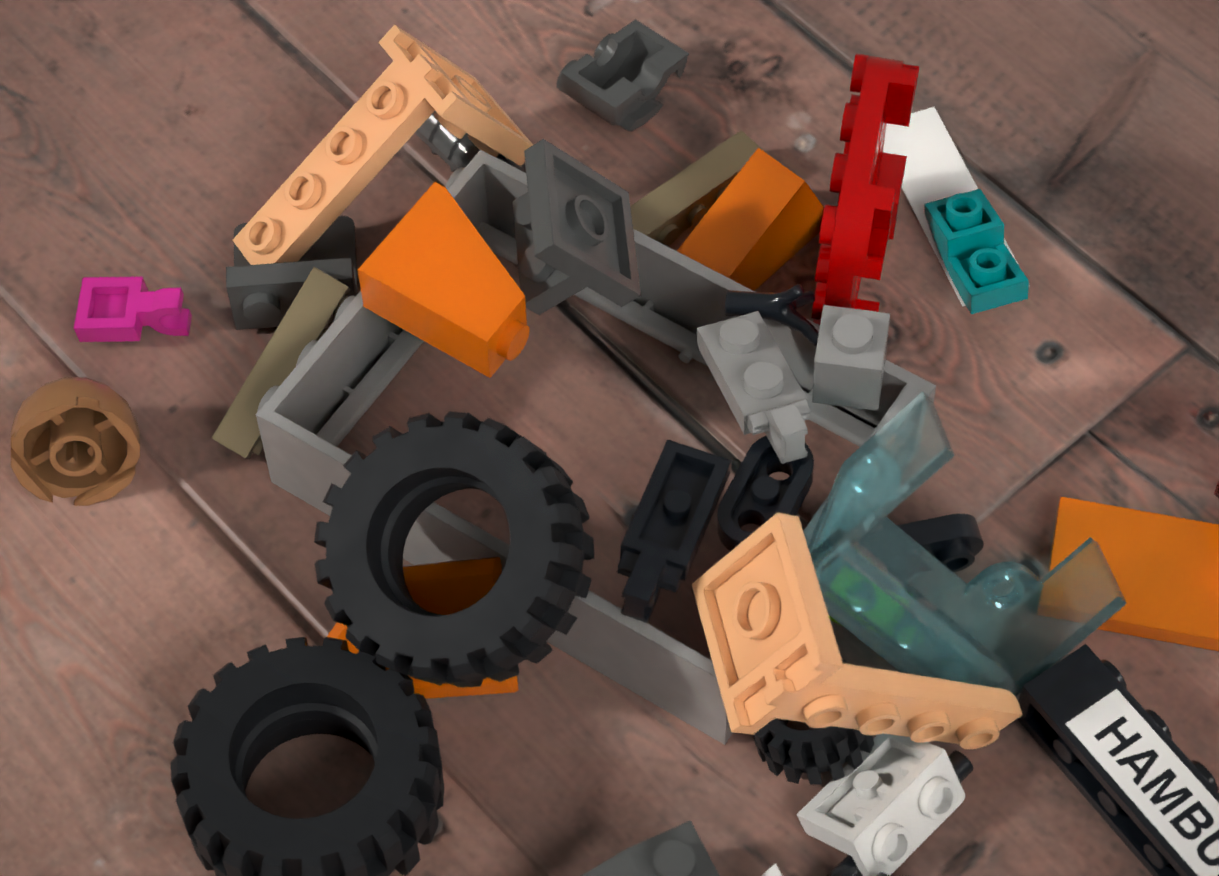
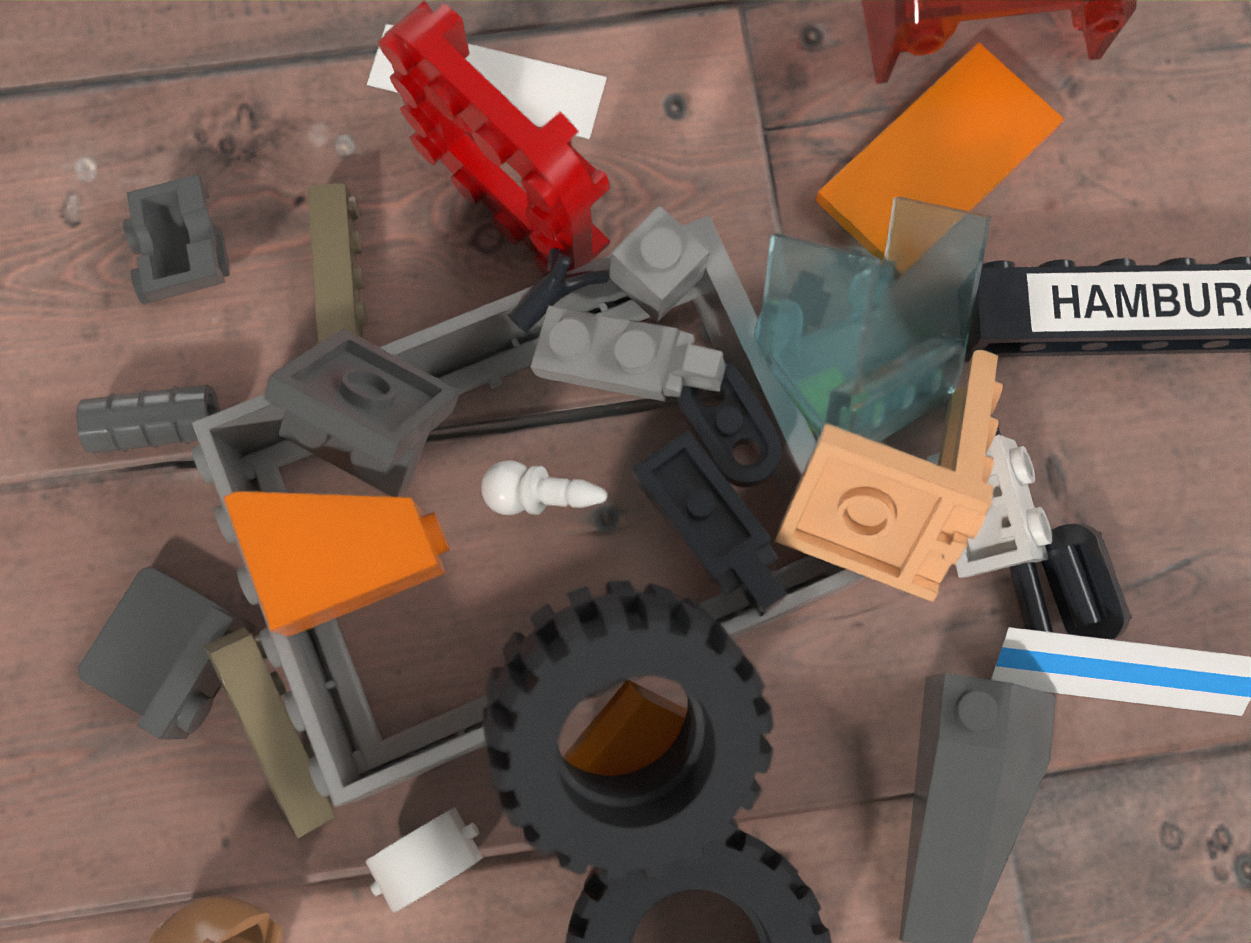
camera: 60 degrees left, 20 degrees up
(120, 306) = (91, 833): dark pink plate -> none
(255, 534) = (424, 860): none -> white piece
(368, 139) = (87, 442): light nougat bracket -> none
(594, 383) = (512, 488): none -> white bar
(756, 223) = (417, 252): orange slope -> none
(974, 251) = (543, 88): teal slope -> none

